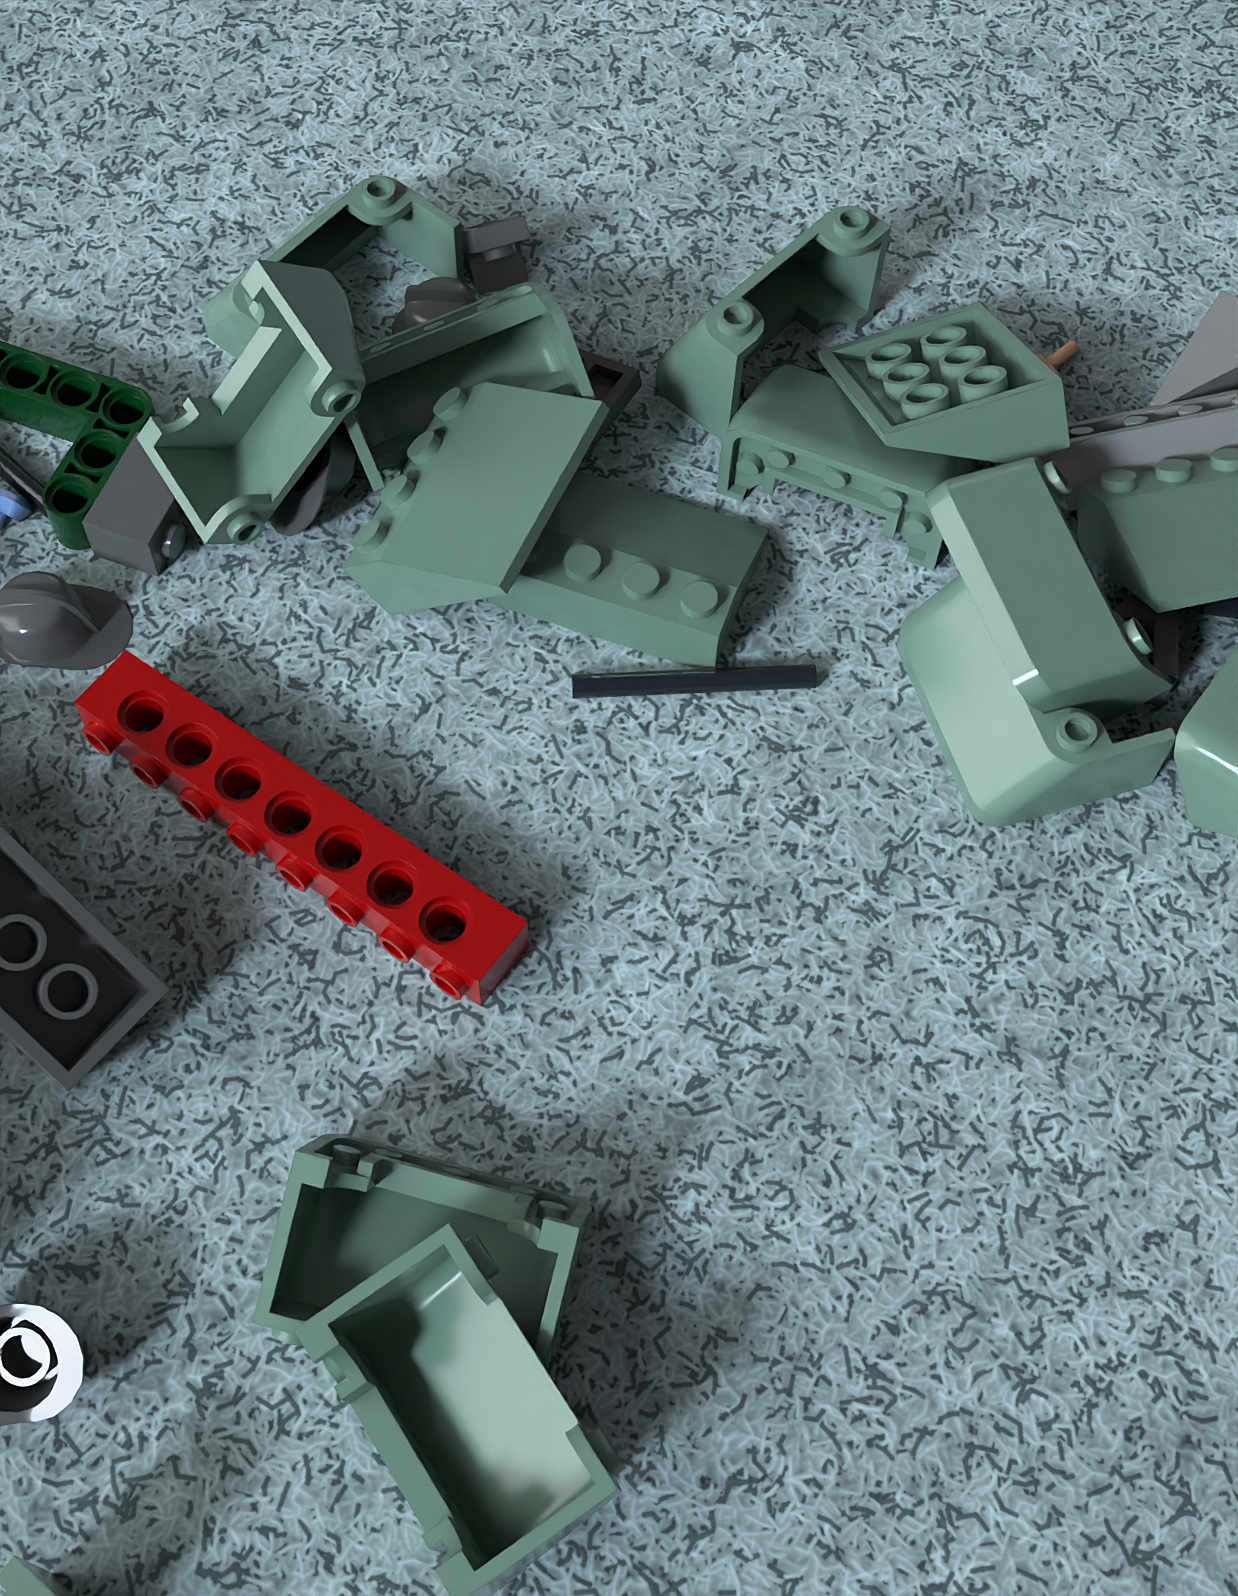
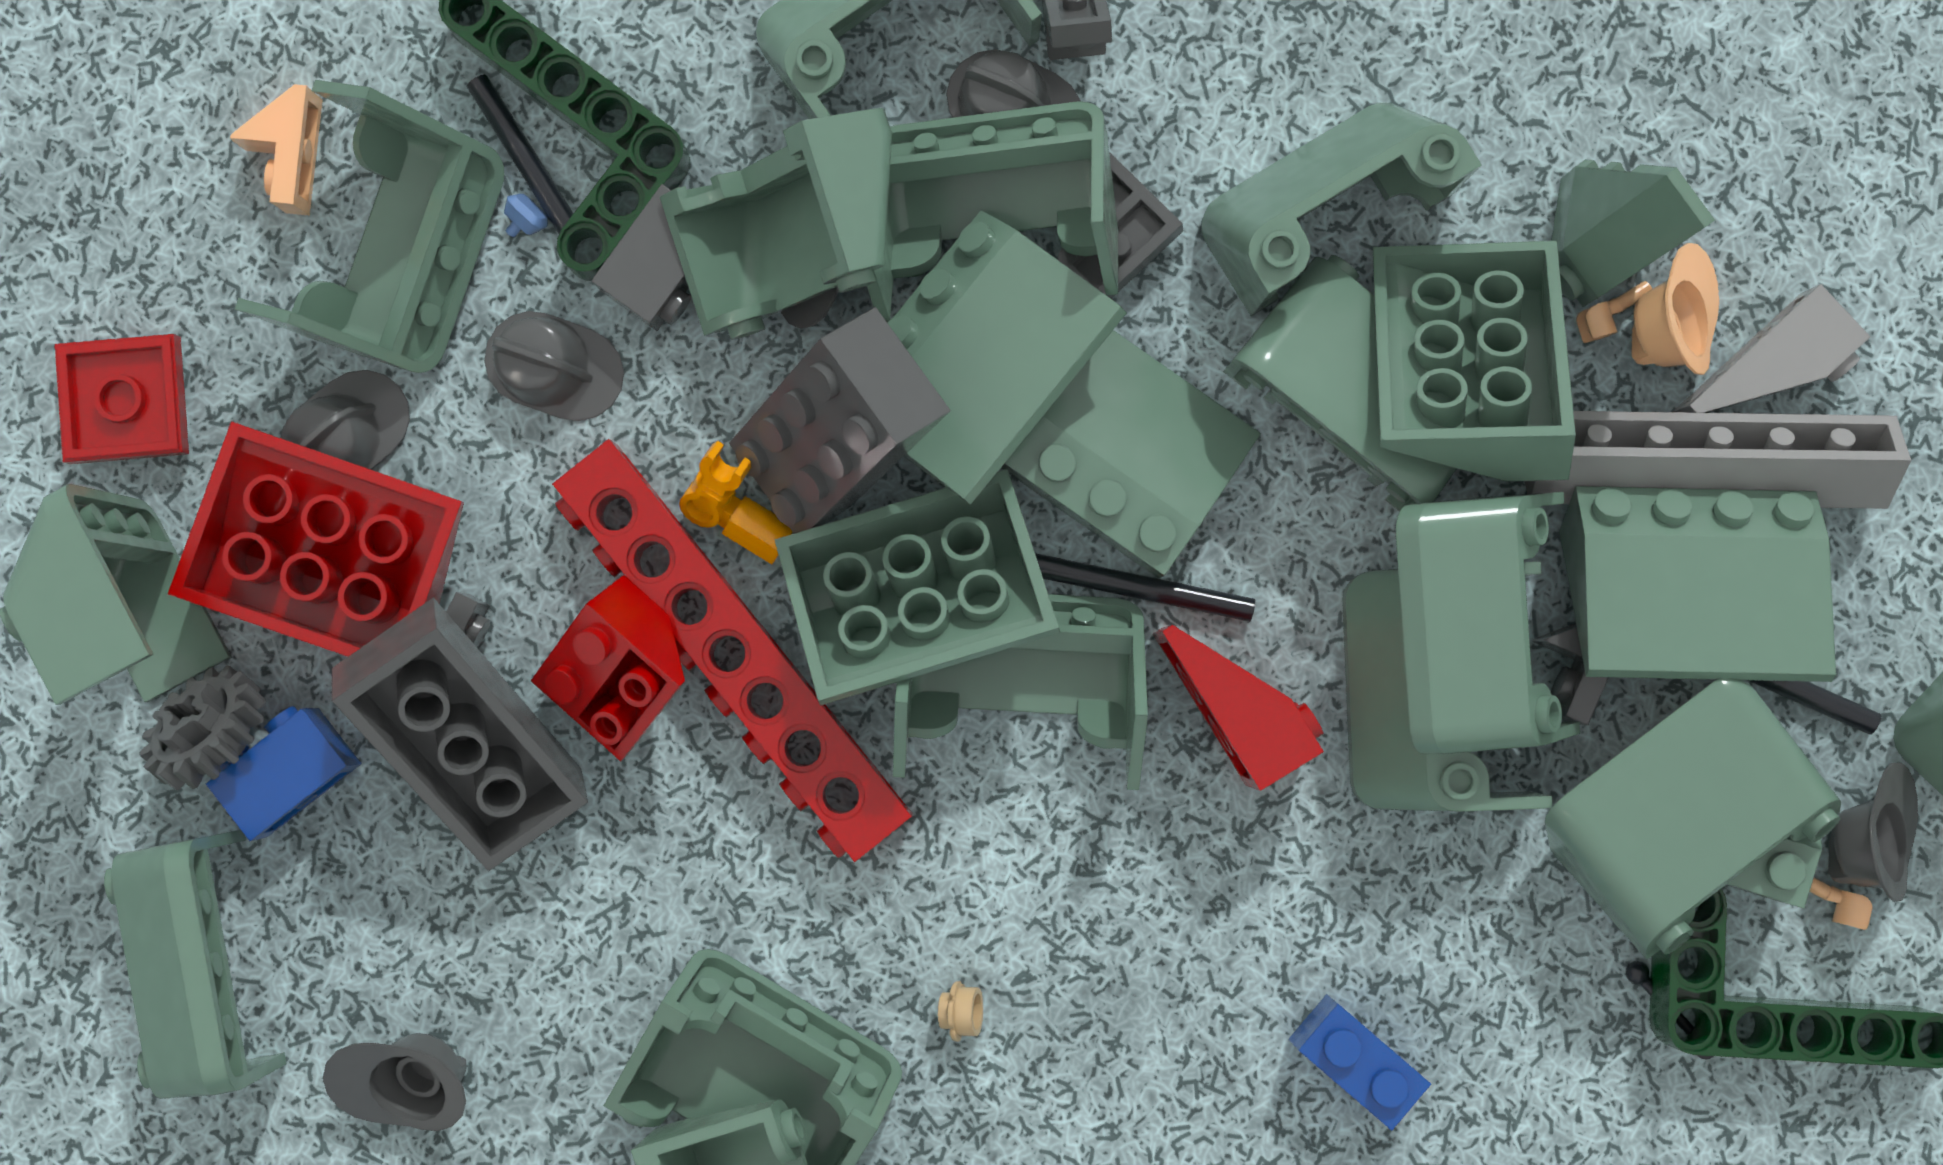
camera: 15 degrees right, 25 degrees up
(168, 849) = (614, 667): none -> red slope
(246, 693) = (713, 501): none -> light orange bar
(354, 555) = (838, 422): none -> dark grey brick
(466, 691) = (914, 588): none -> sand green slope
(608, 767) = (1084, 671): none -> sand green windscreen
(638, 1125) = (961, 1011): none -> tan plate
(829, 735) = (1252, 721): none -> red slope
(1037, 249) = (1619, 223): none -> sand green wedge
(1084, 1058) = (1359, 1062): none -> blue brick
(1106, 351) = (1680, 315): none -> light nougat piece

